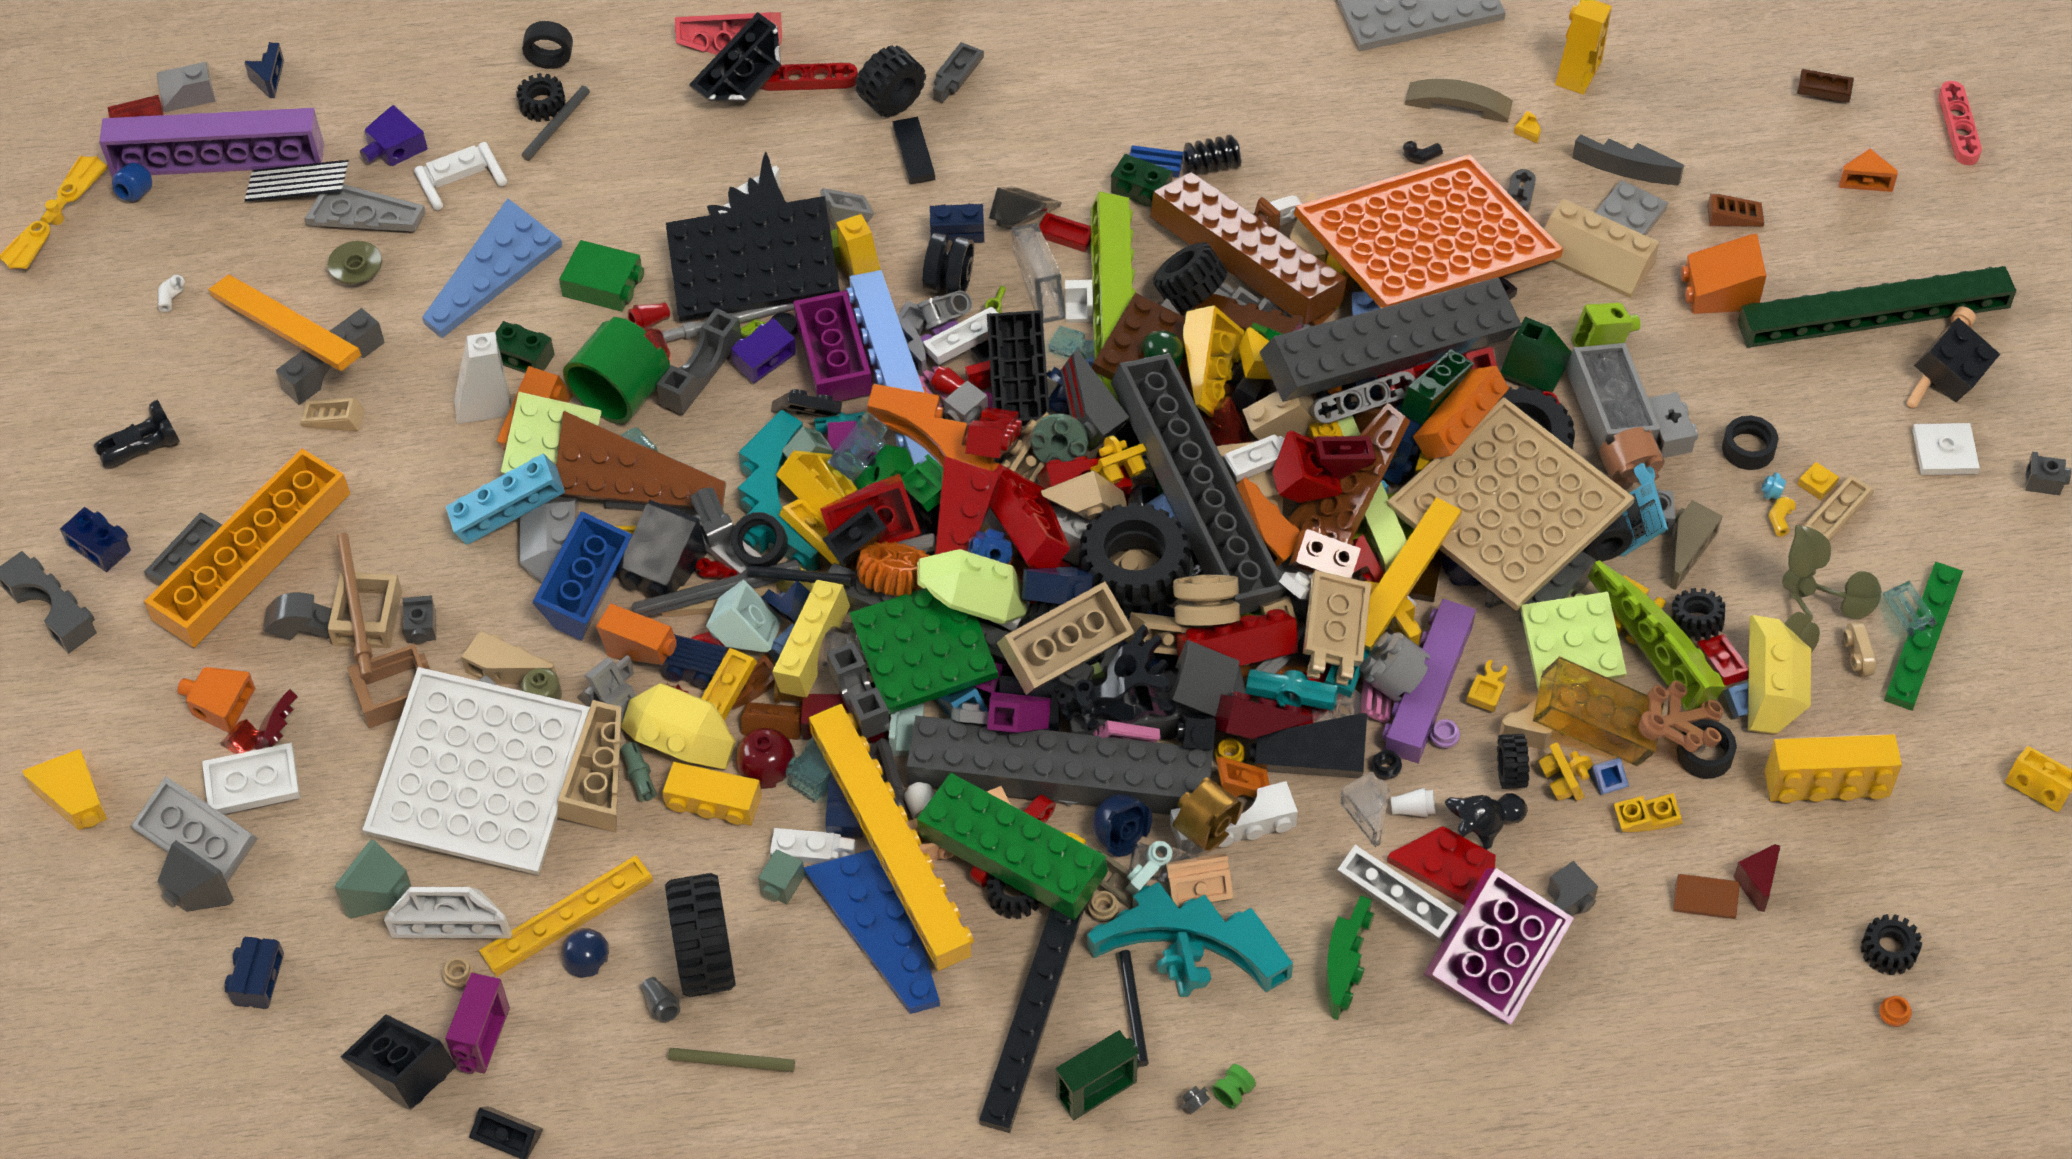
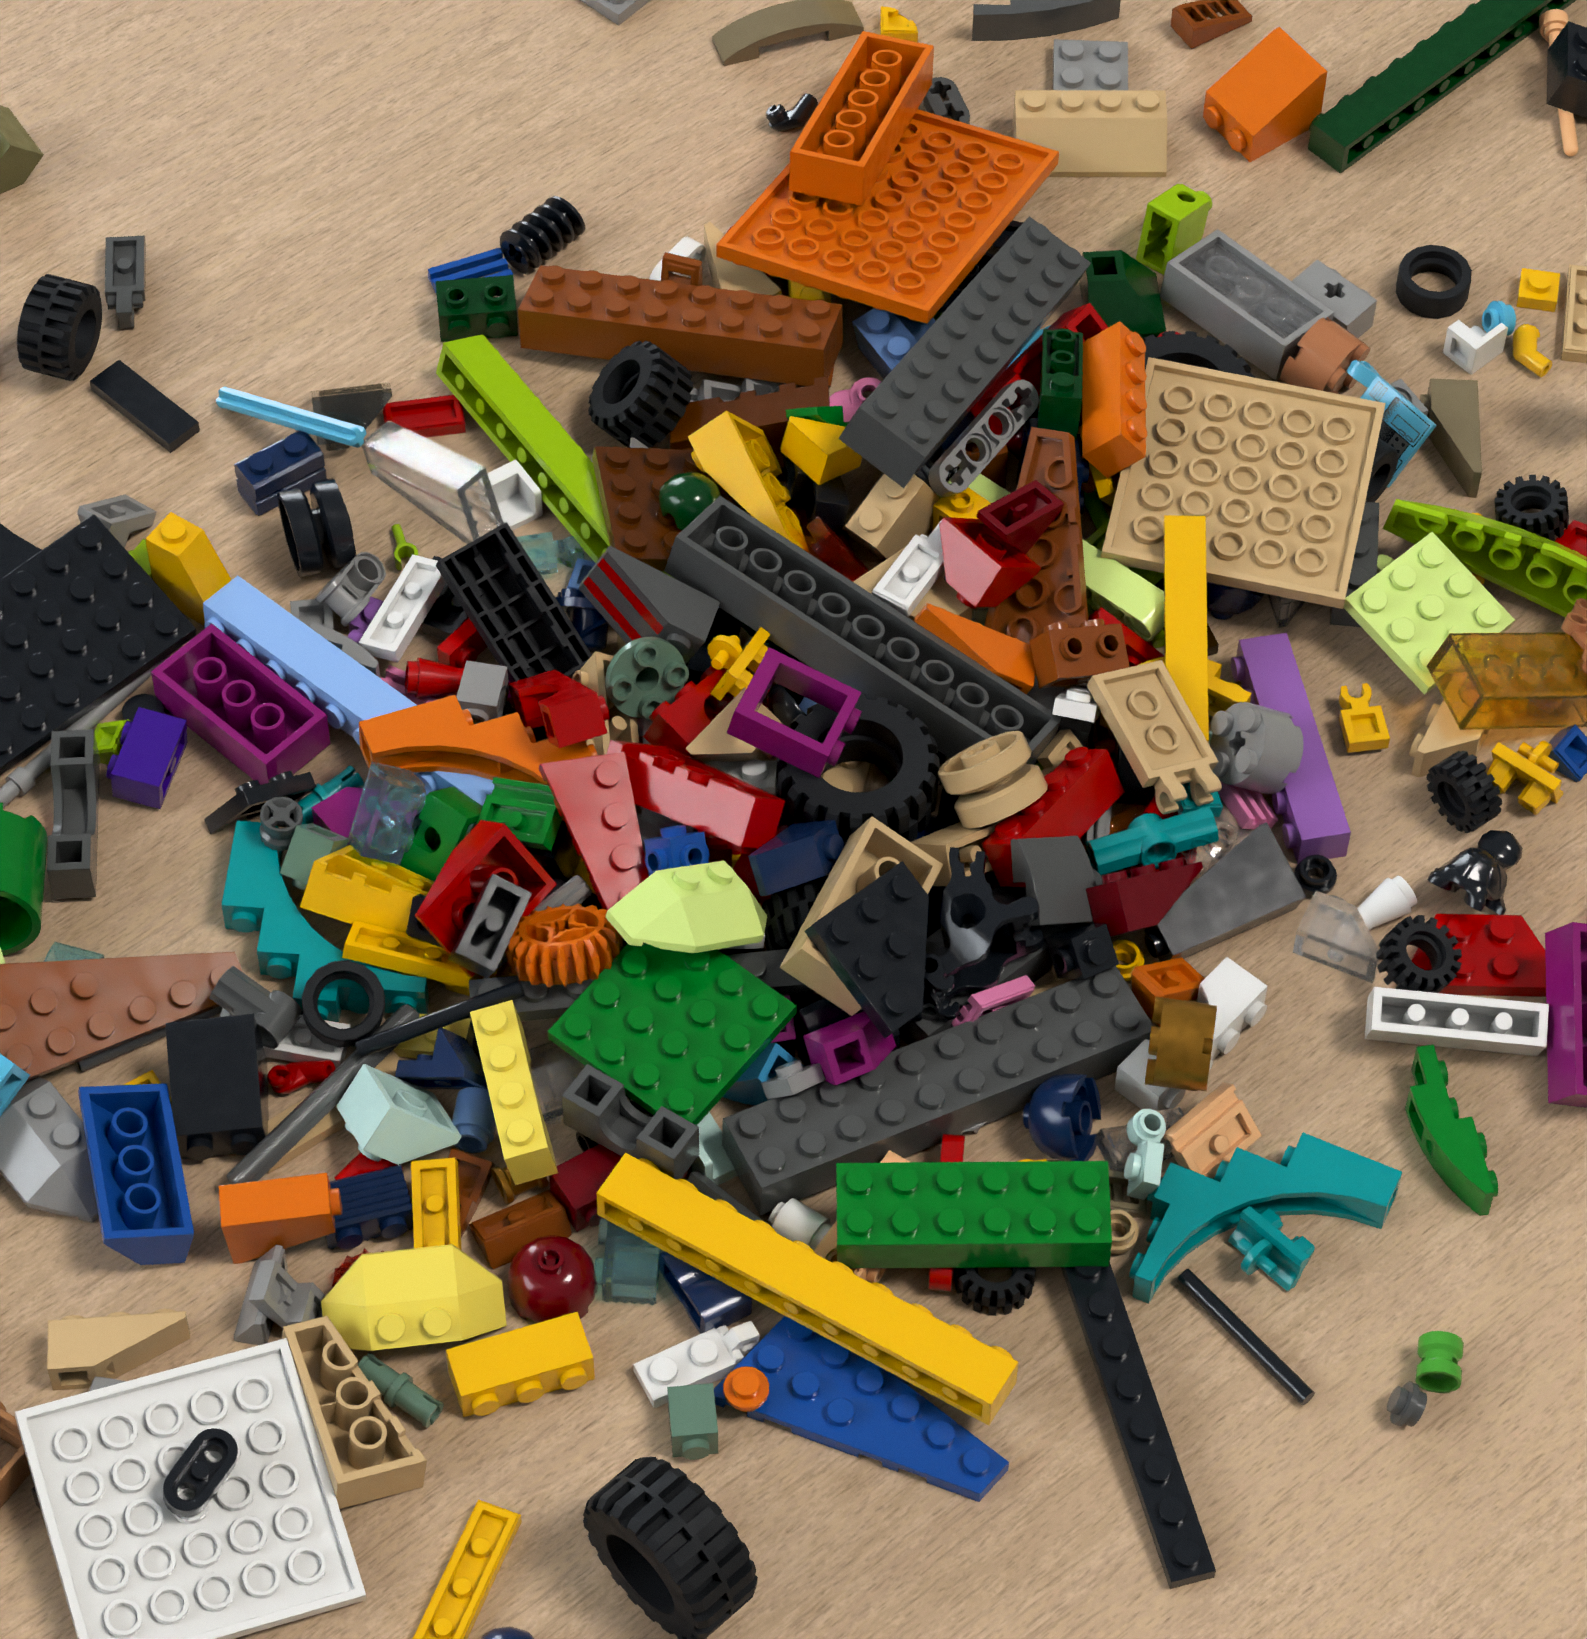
camera: 35 degrees left, 0 degrees up
(488, 751) = (198, 1474): none -> black plate
(543, 683) = (186, 1344): olive head -> none
(799, 414) = (280, 813): none -> dark grey wheel
(821, 875) = (746, 1388): none -> orange plate
(981, 194) = (291, 417): none -> medium azure axle
(1056, 658) = (880, 947): none -> black plate
(1096, 474) = (781, 740): none -> magenta window
(1097, 1074) = (1279, 1440): dark green window -> none
(1409, 827) = (1428, 939): none -> black tyre
(1444, 733) = (1356, 802): lavender plate -> none
(1446, 170) = (861, 118): none -> orange brick
(1745, 497) = (1473, 346): none -> white panel

